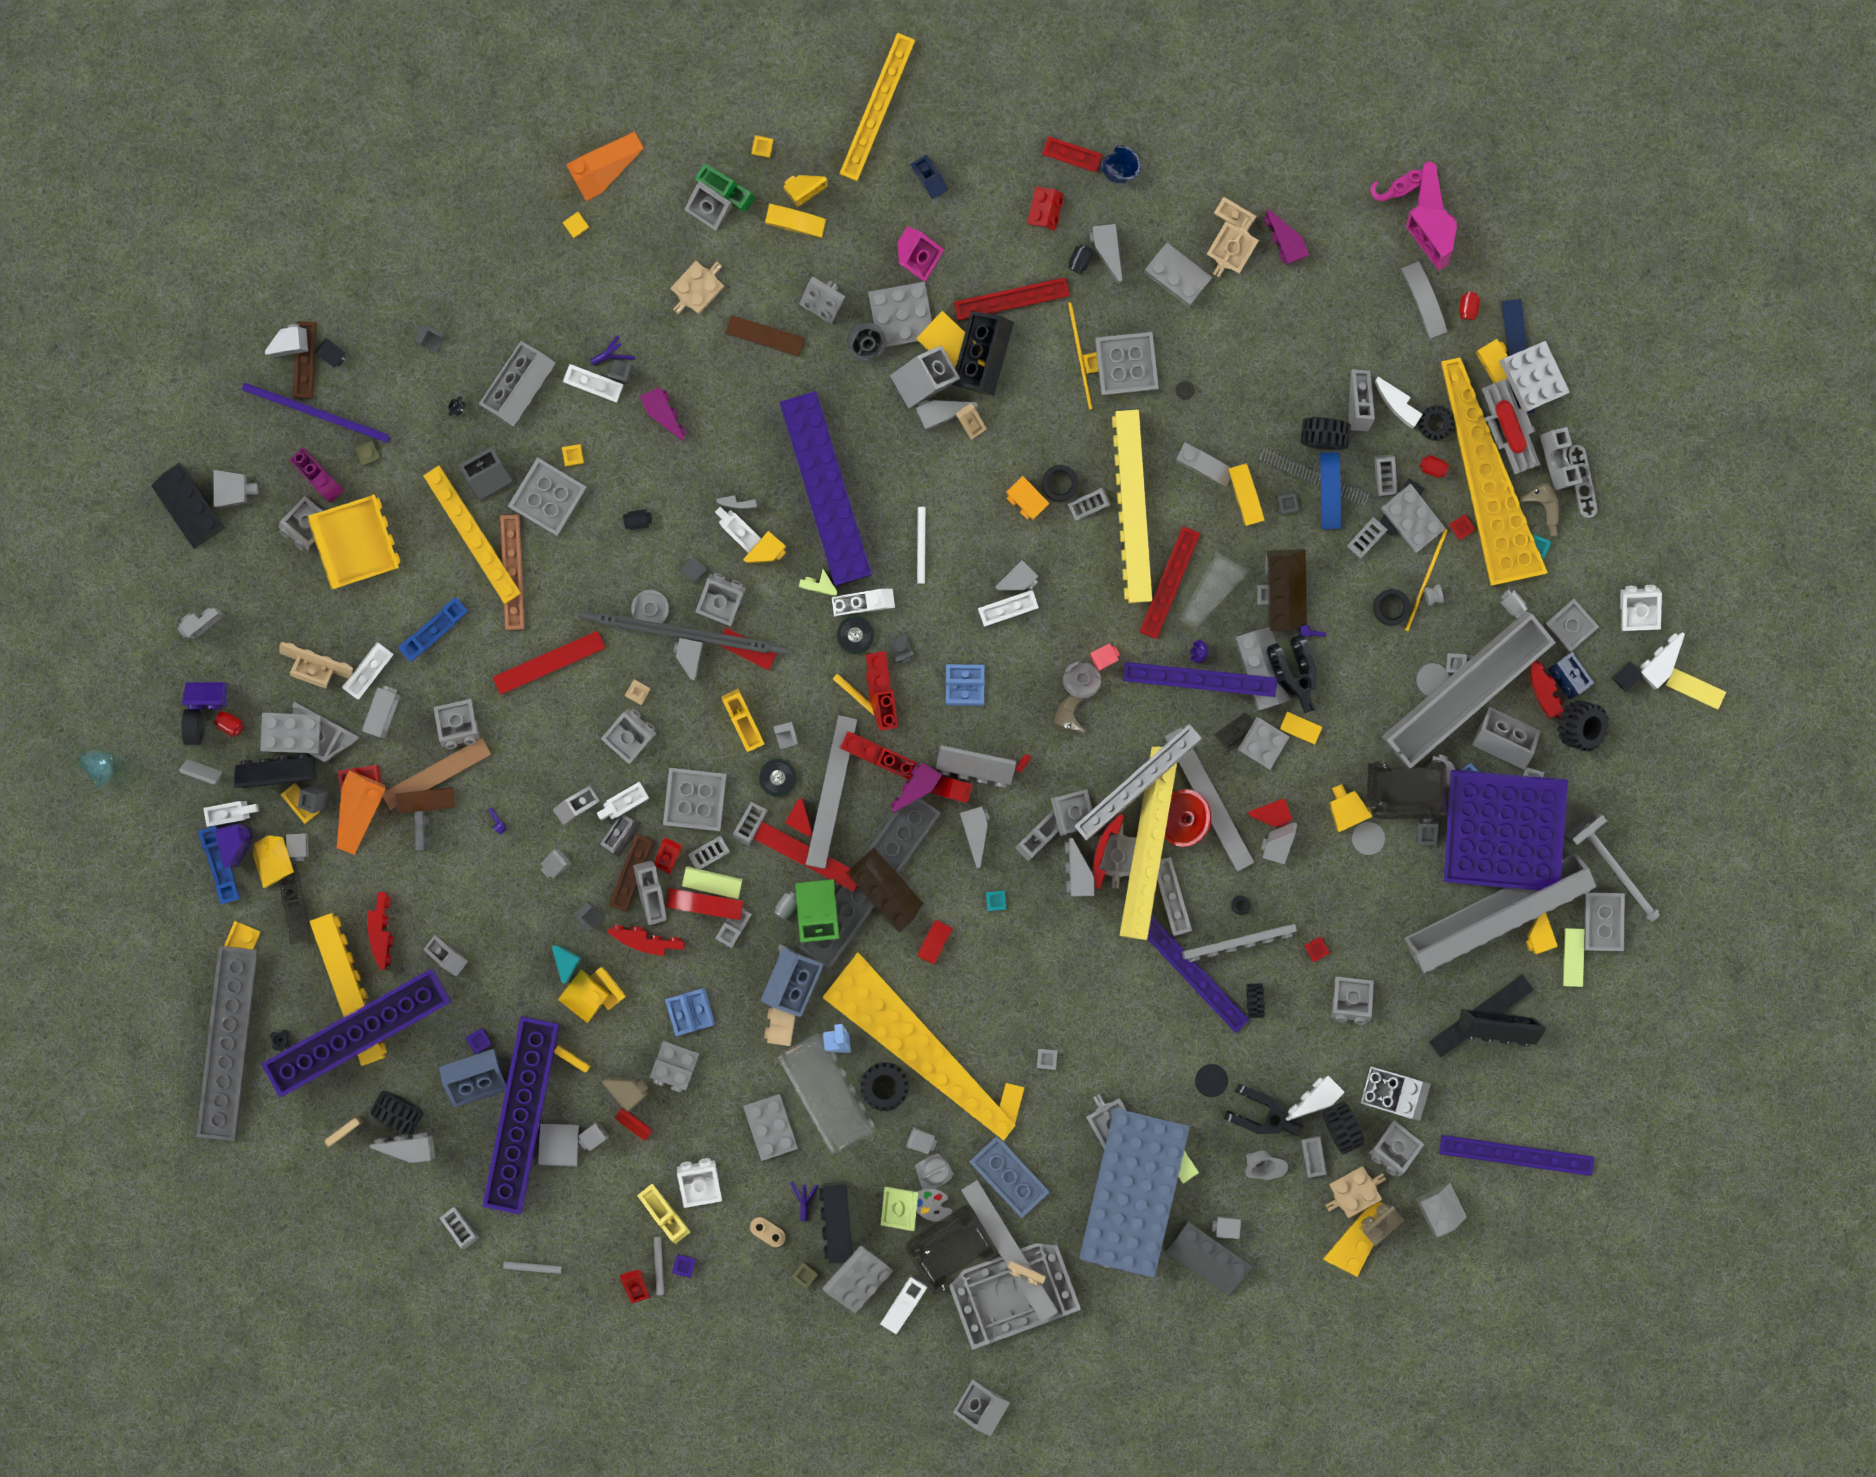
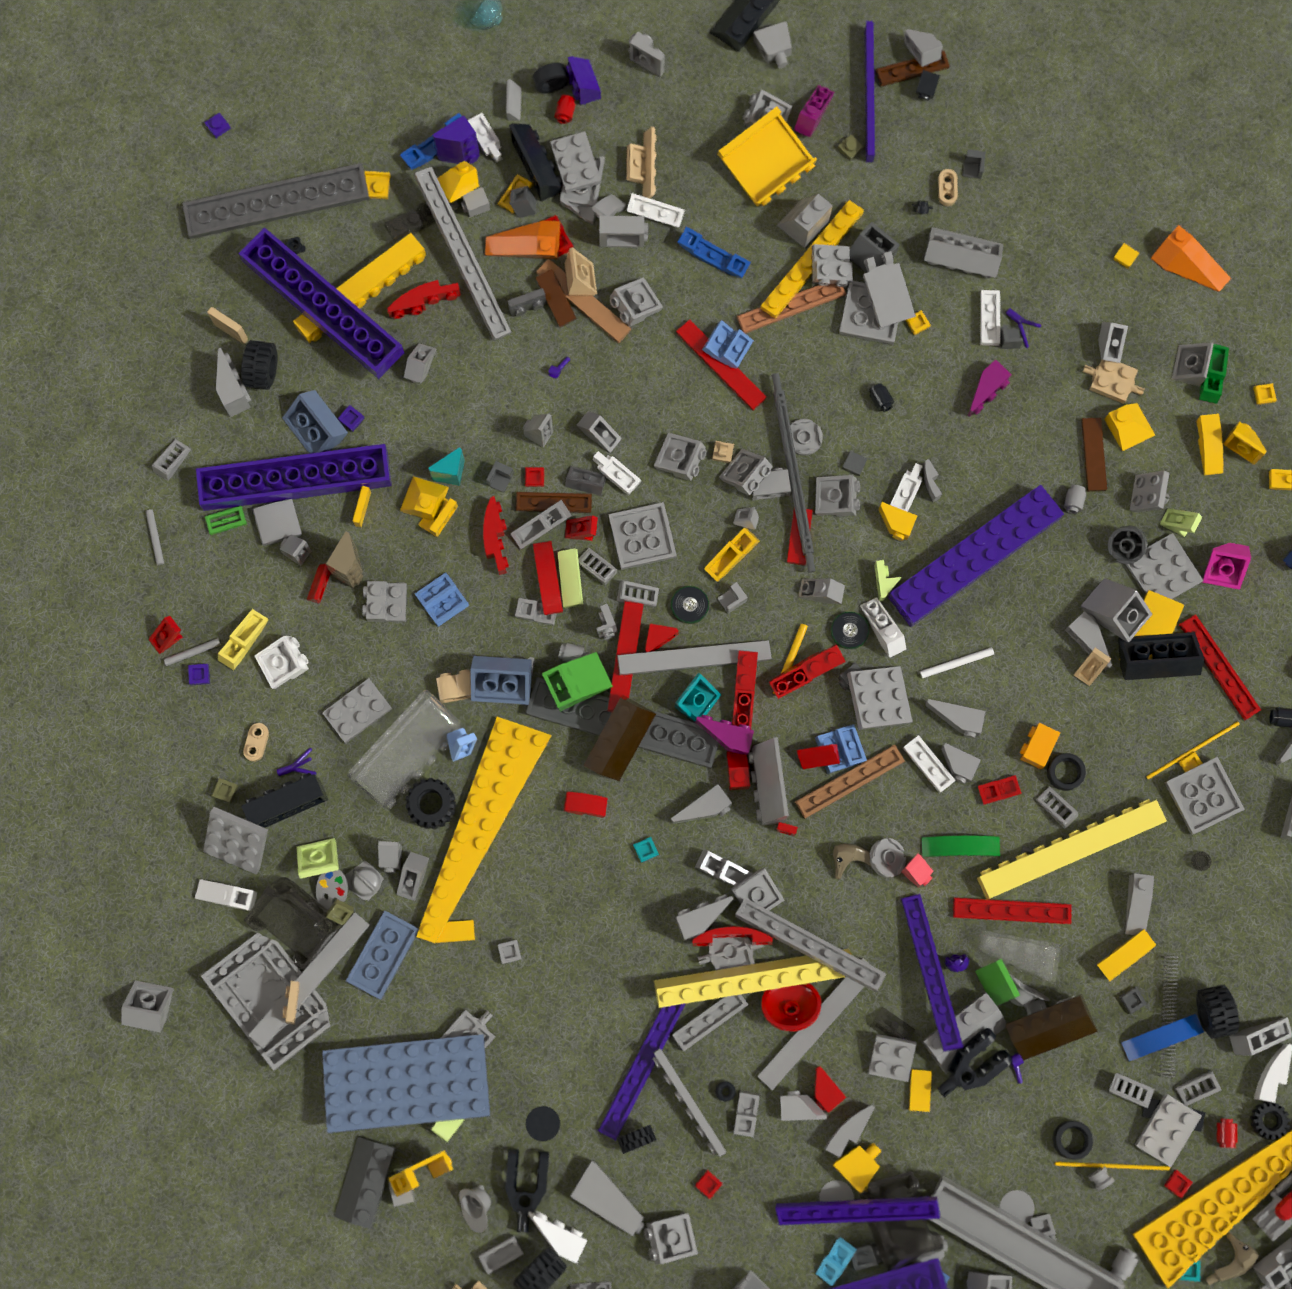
camera: 70 degrees right, 10 degrees down
(122, 1076) = (217, 125): none -> dark purple plate
(349, 716) = (608, 206): none -> light grey slope
(349, 877) = (462, 253): none -> light grey plate
(410, 768) = (579, 274): none -> tan slope
(430, 527) = (806, 219): none -> light grey slope
(444, 373) = (949, 188): none -> tan plate
(487, 519) = (831, 265): none -> light grey plate
(531, 1194) = (226, 527): none -> bright green tile
(532, 649) = (727, 345): none -> medium blue slope
(536, 475) = (887, 291): none -> light grey tile
(599, 882) = (534, 476): none -> red tile
(659, 275) = (1112, 341): none -> light grey slope
(667, 678) = (746, 471): none -> light grey plate
(712, 693) = (746, 518): none -> light grey slope
(749, 290) = (1129, 426): none -> yellow slope
(766, 862) = (609, 628): none -> light grey bracket
(803, 372) = (1075, 499): none -> light grey brick
(808, 648) = (822, 590): none -> light grey slope
(860, 280) = (1181, 521): none -> yellowish green slope
(872, 802) = (697, 698): none -> teal slope
(930, 631) = (879, 697): none -> light grey plate
(945, 1125) = (412, 876): none -> light grey slope
(956, 1203) = (339, 912): none -> olive plate
(965, 709) = (818, 756): none -> red slope
(977, 560) = (961, 718): none -> light grey slope
(998, 688) = (849, 781): none -> medium nougat tile
(1055, 551) = (999, 790): none -> red slope
(1094, 607) = (960, 846): none -> green slope
(1220, 1220) = (406, 1180): none -> yellow panel
(1230, 623) = (997, 982): none -> bright green tile
(1247, 603) = (1027, 994): none -> light grey piece
(1266, 893) = (746, 1113): none -> light grey slope
(1296, 1047) = (603, 1197): none -> light grey slope
(1314, 804) = (849, 1130): none -> light grey slope
(1386, 825) = (858, 1210): none -> dark purple tile
(1423, 859) = (836, 1261): none -> medium azure slope

